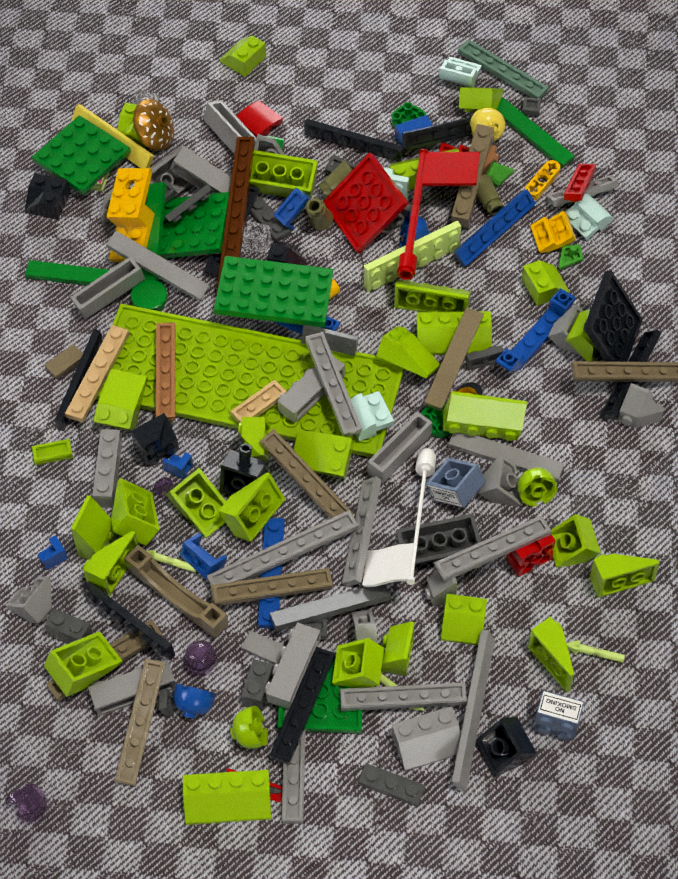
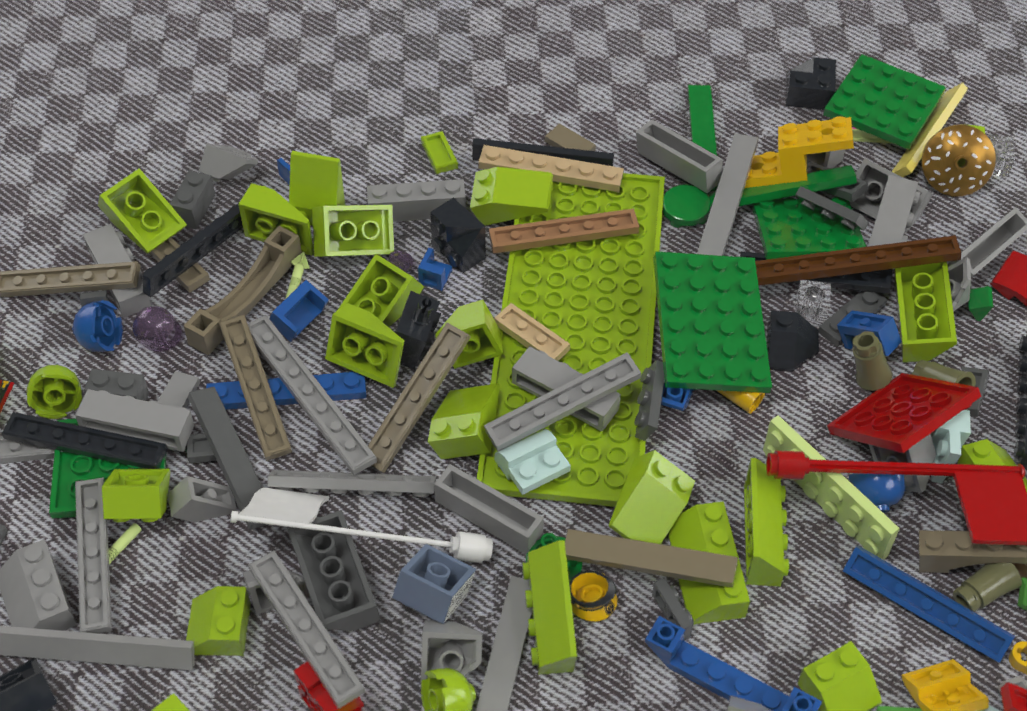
camera: 80 degrees right, 5 degrees down
(398, 649) = (164, 543): lime slope -> none

